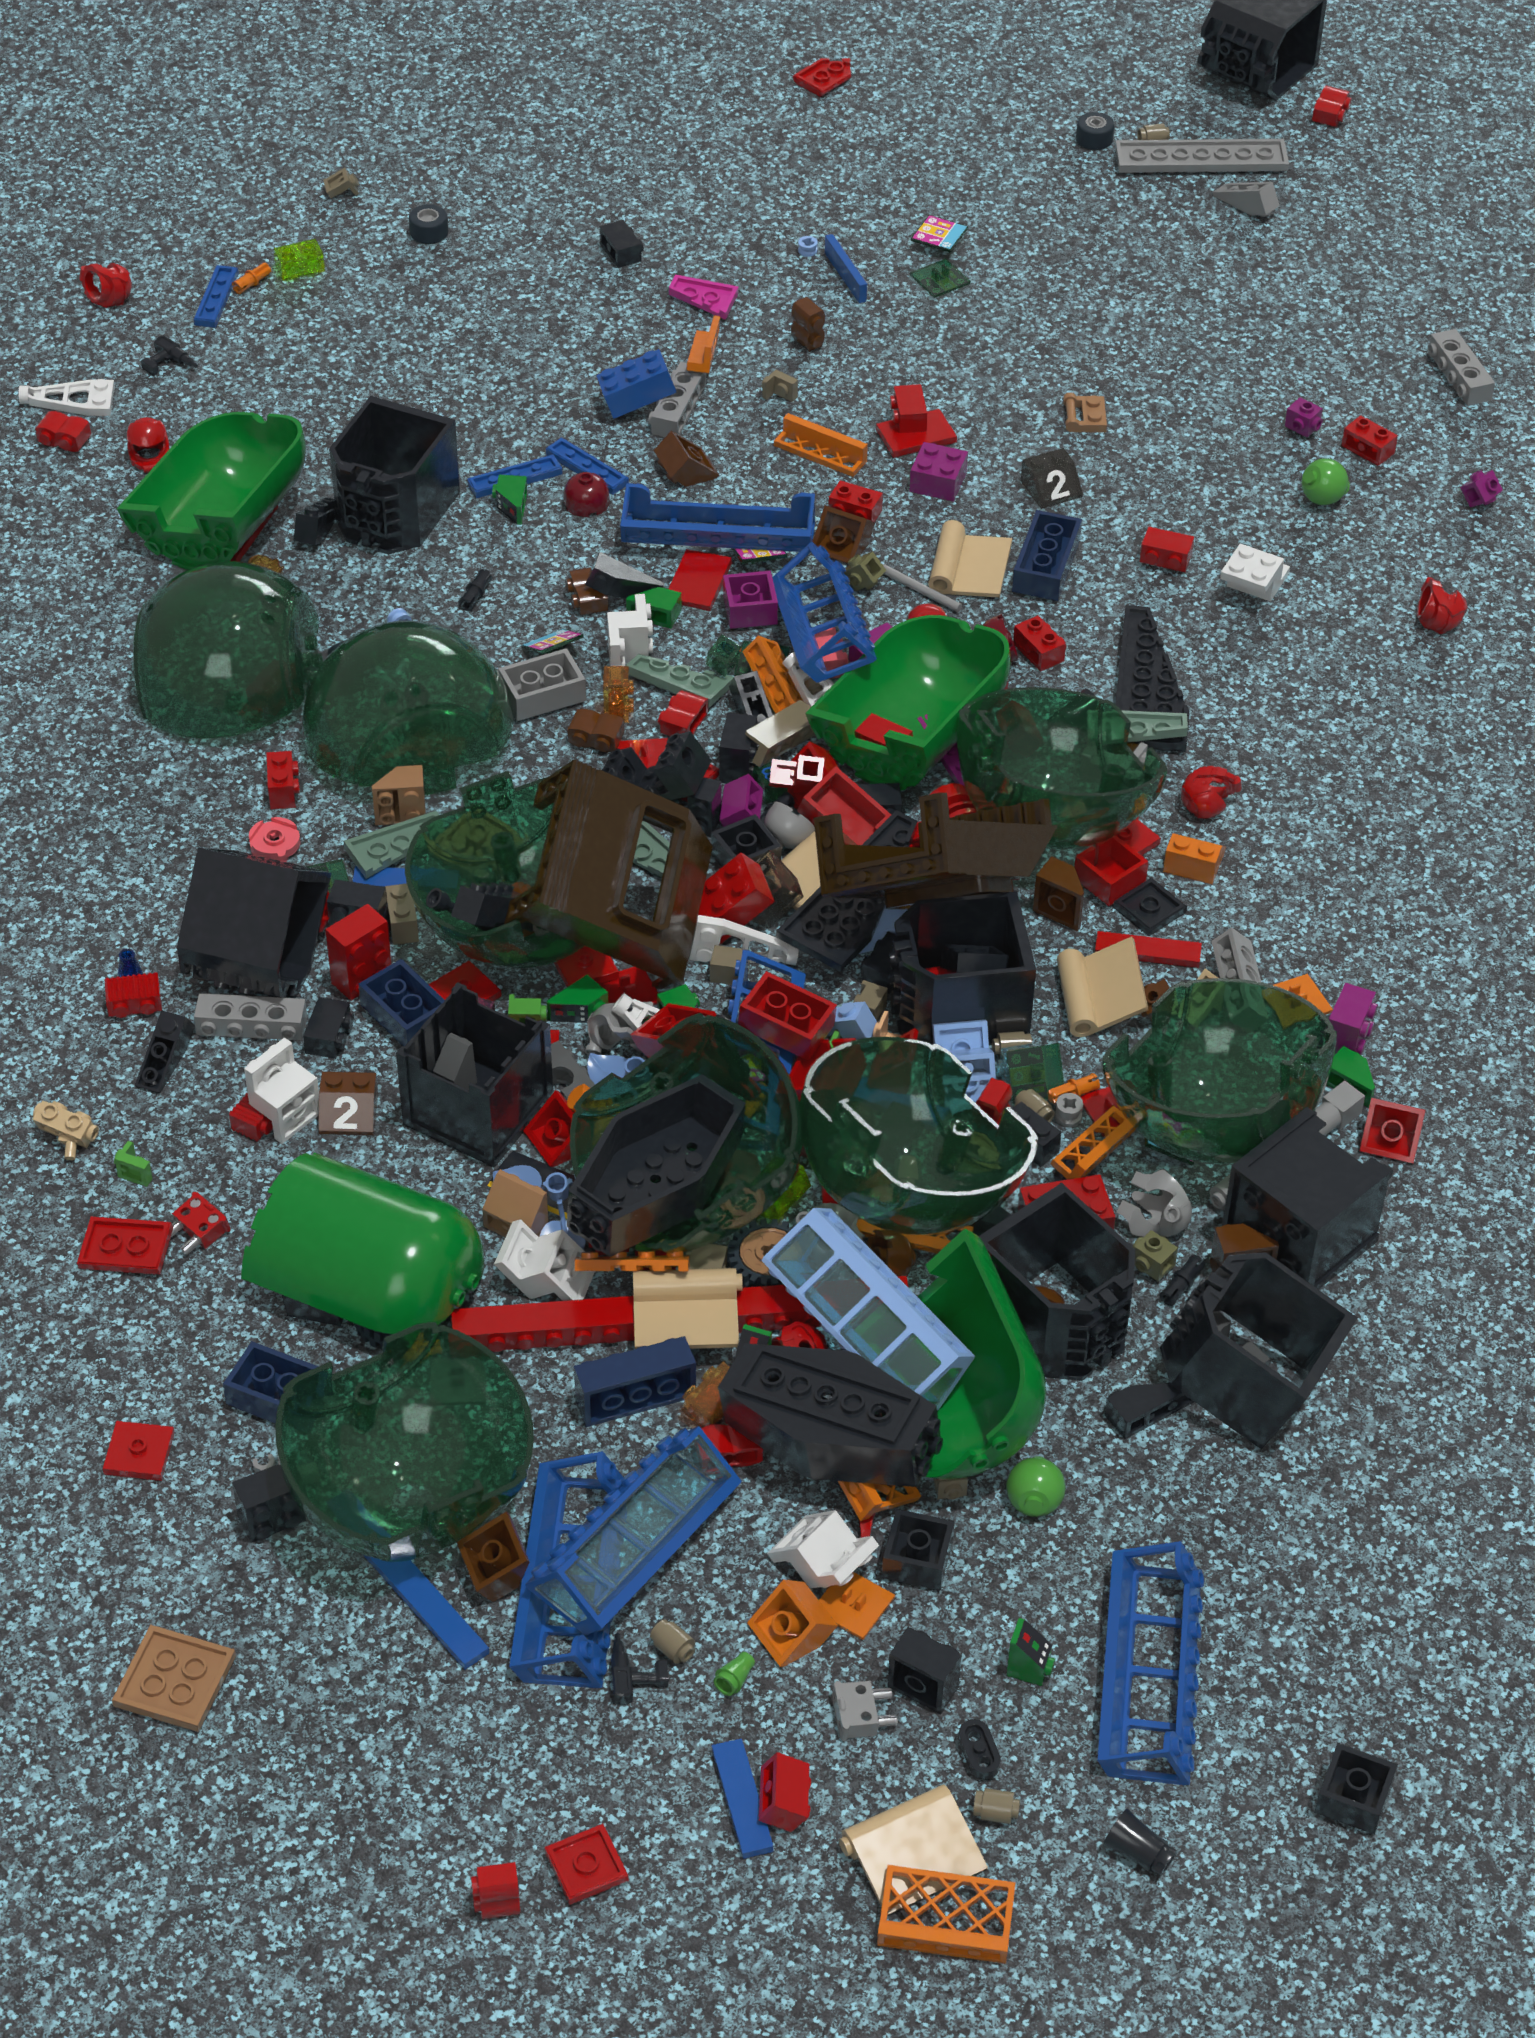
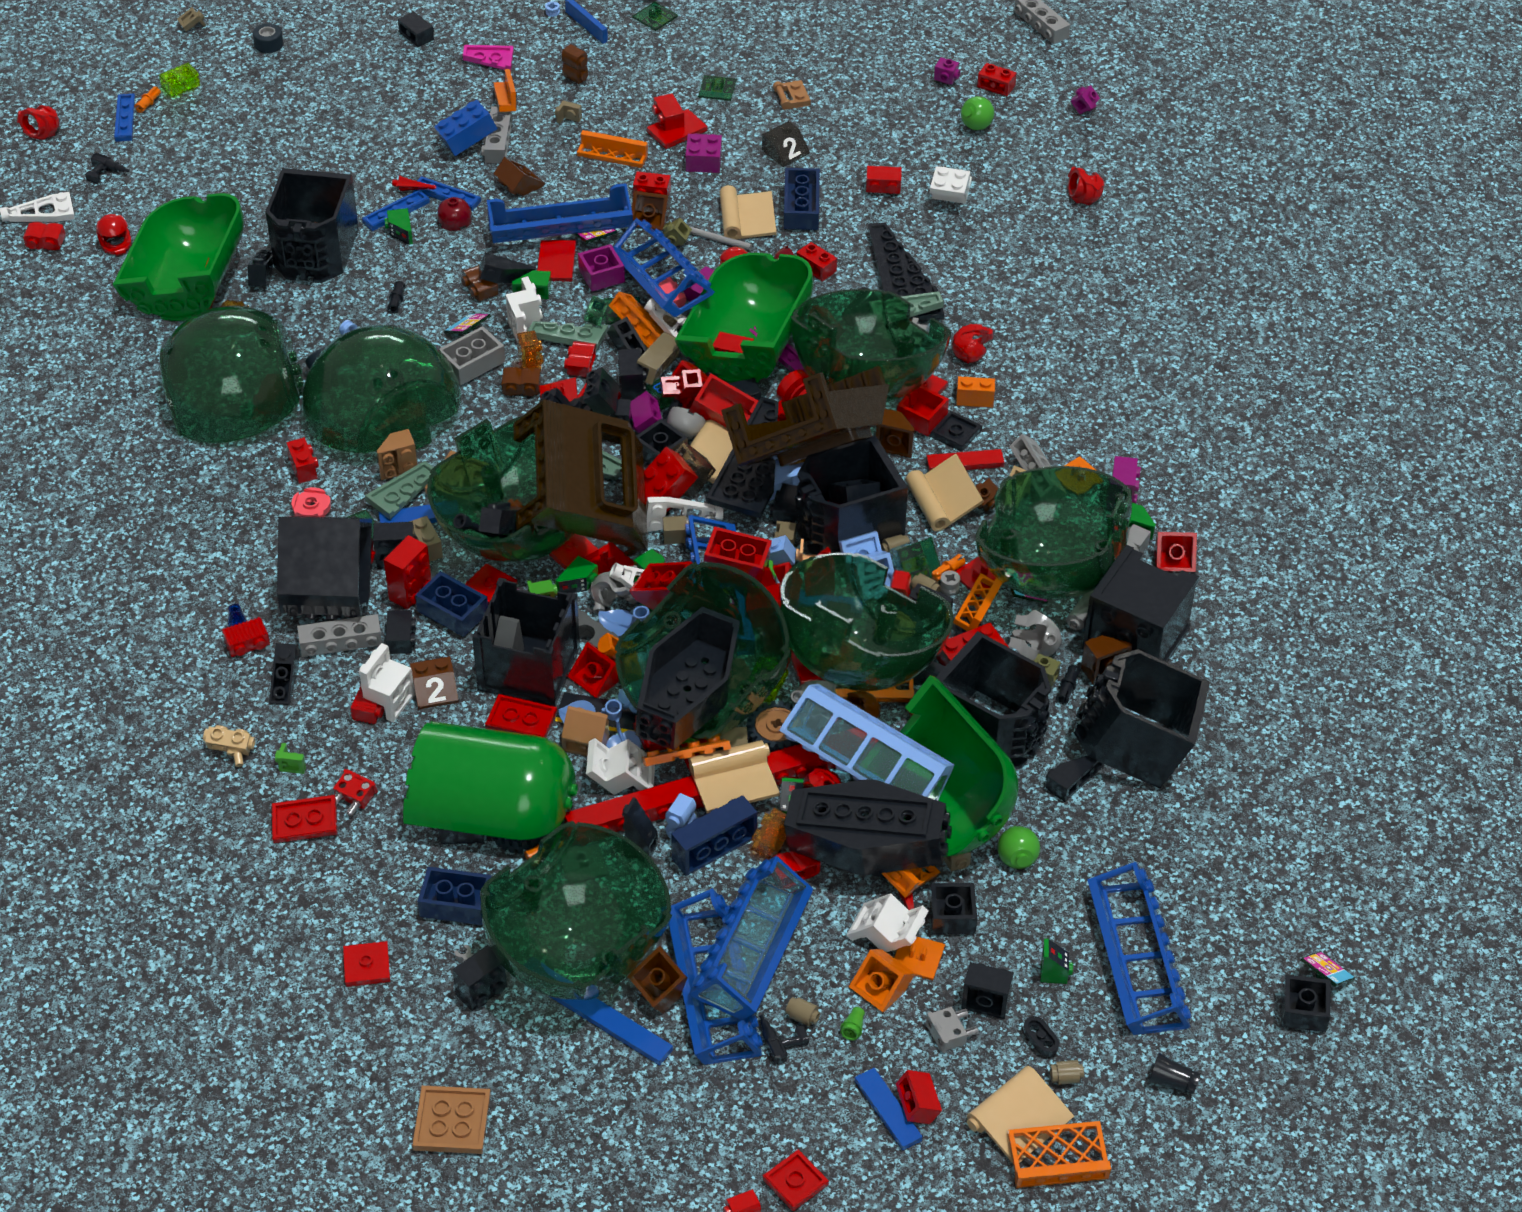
camera: 15 degrees left, 0 degrees up
(444, 1172) = (520, 716): none -> red tile
(537, 1354) = (639, 827): none -> black slope
(539, 445) = (407, 184): none -> red piece
(599, 1341) = (680, 813): none -> light blue brick
(989, 387) = (717, 88): none -> clear green piece
(1404, 1748) = (1327, 969): none -> piece

